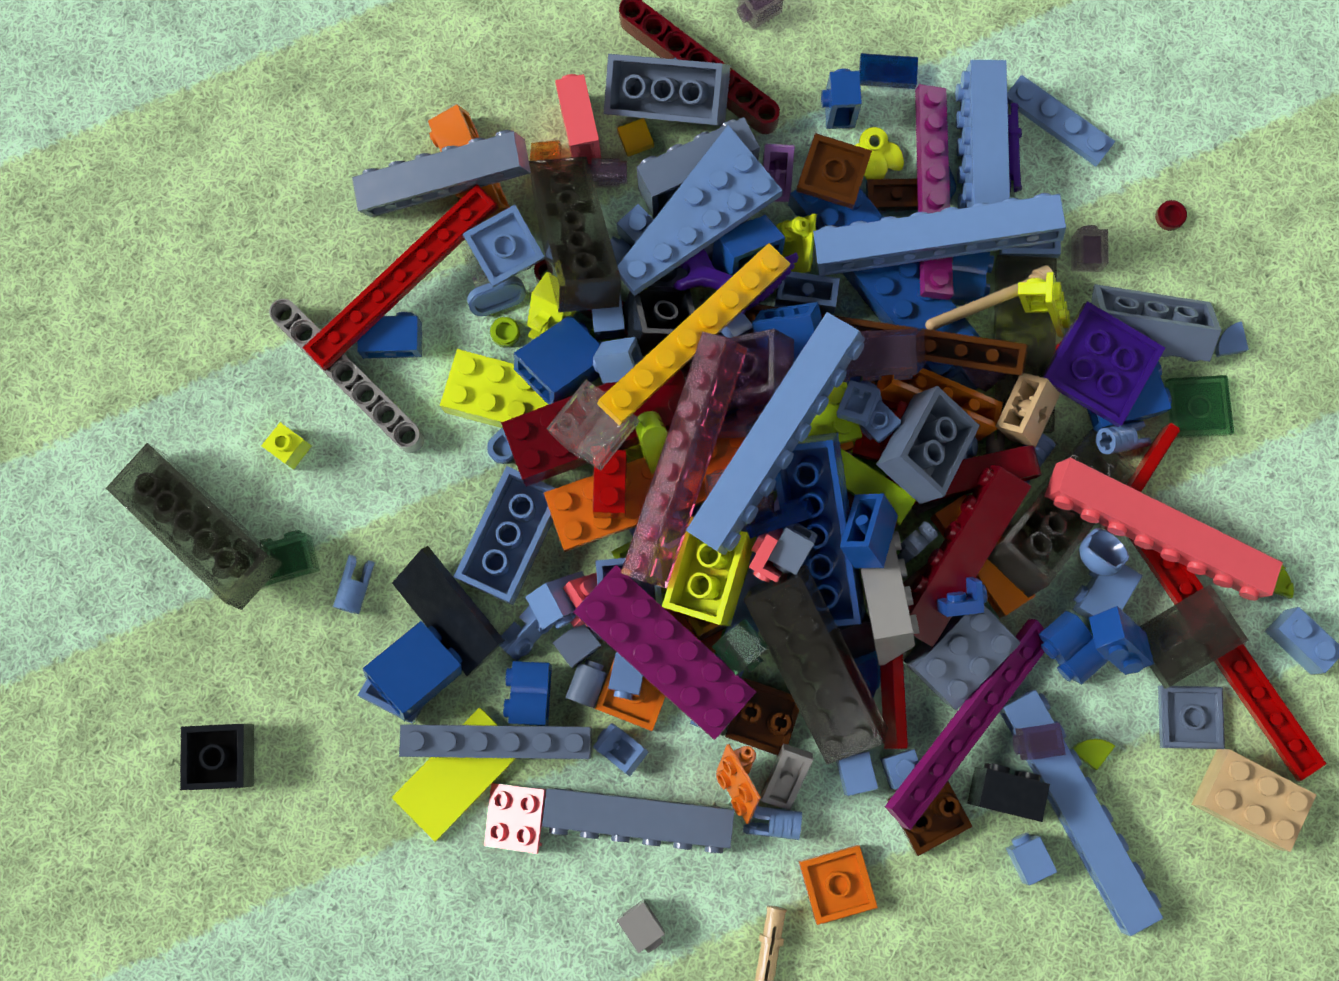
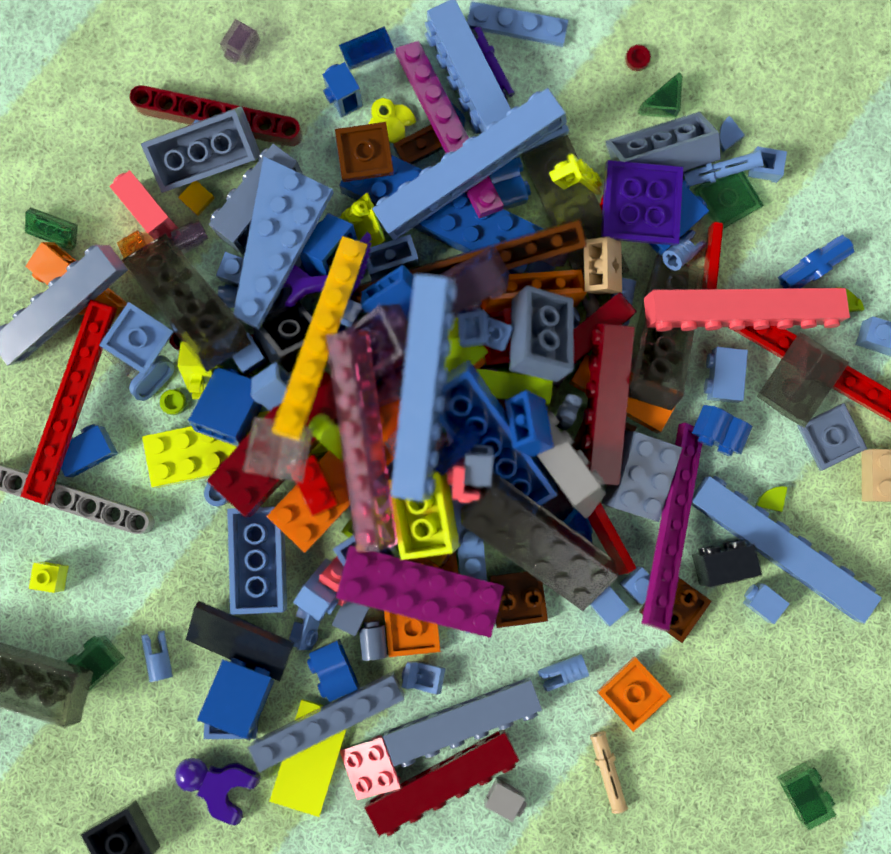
camera: 30 degrees left, 5 degrees up
(343, 749) = (215, 784): none -> dark purple piece
(472, 97) = (51, 228): none -> clear green plate
(583, 872) = (441, 782): none -> dark red brick
(624, 679) = (400, 626): medium blue brick -> none
(733, 776) = (516, 654): orange hinge -> none
(741, 648) = (477, 559): clear green brick -> none
(779, 164) = (320, 168): medium lavender slope -> none
(786, 776) = (557, 634): light grey plate -> none
(959, 604) = (626, 443): blue bracket -> none
(982, 303) = (560, 156): tan piece -> none
(1039, 741) = (731, 515): clear purple brick -> none
(1089, 249) = (589, 115): brick -> none
(1103, 553) = (711, 348): medium blue hair -> none
(1121, 641) = (755, 408): blue brick -> none
(1179, 272) = (665, 101): none -> clear green slope
(1213, 373) = (694, 177): none -> medium blue pin
(1264, 522) = (817, 263): none -> blue piece
(1267, 390) = (774, 162): none -> medium blue brick

